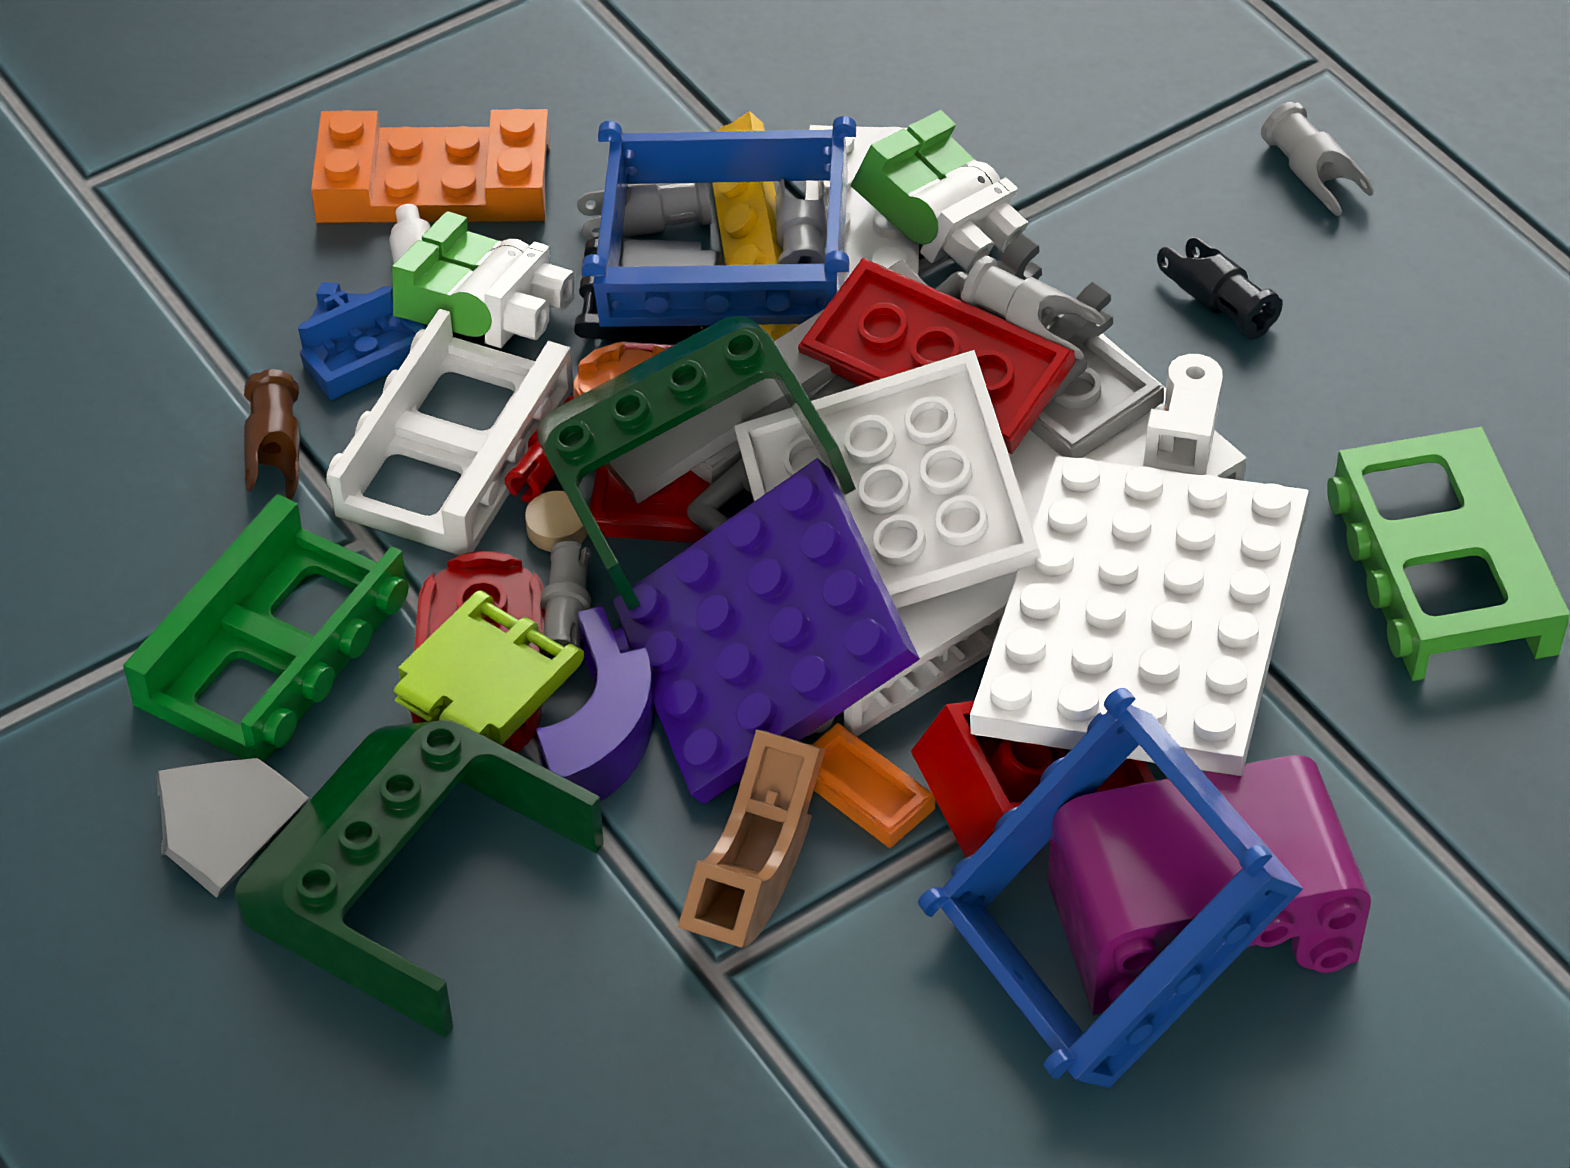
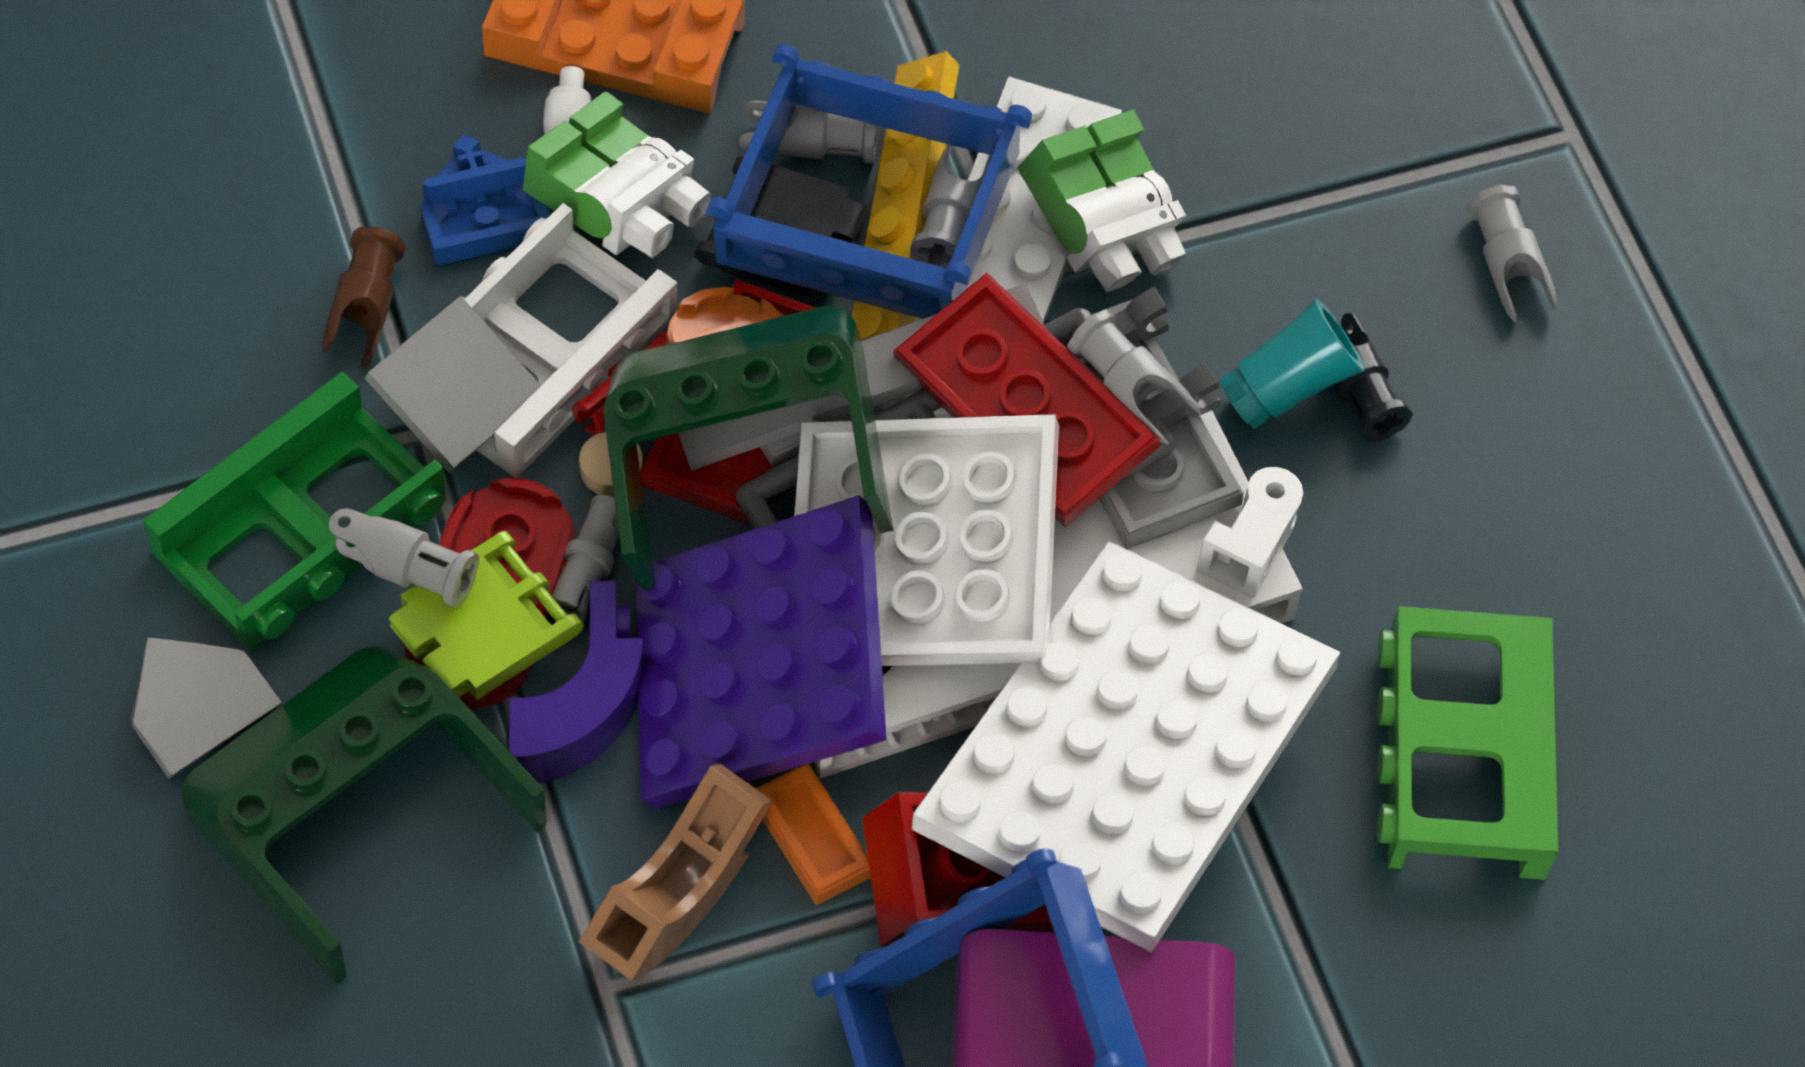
camera: 10 degrees right, 10 degrees up
(386, 479) = (453, 383): none -> light grey tile
(392, 626) = (405, 555): none -> light grey piece
(1164, 283) = (1292, 366): none -> teal plant

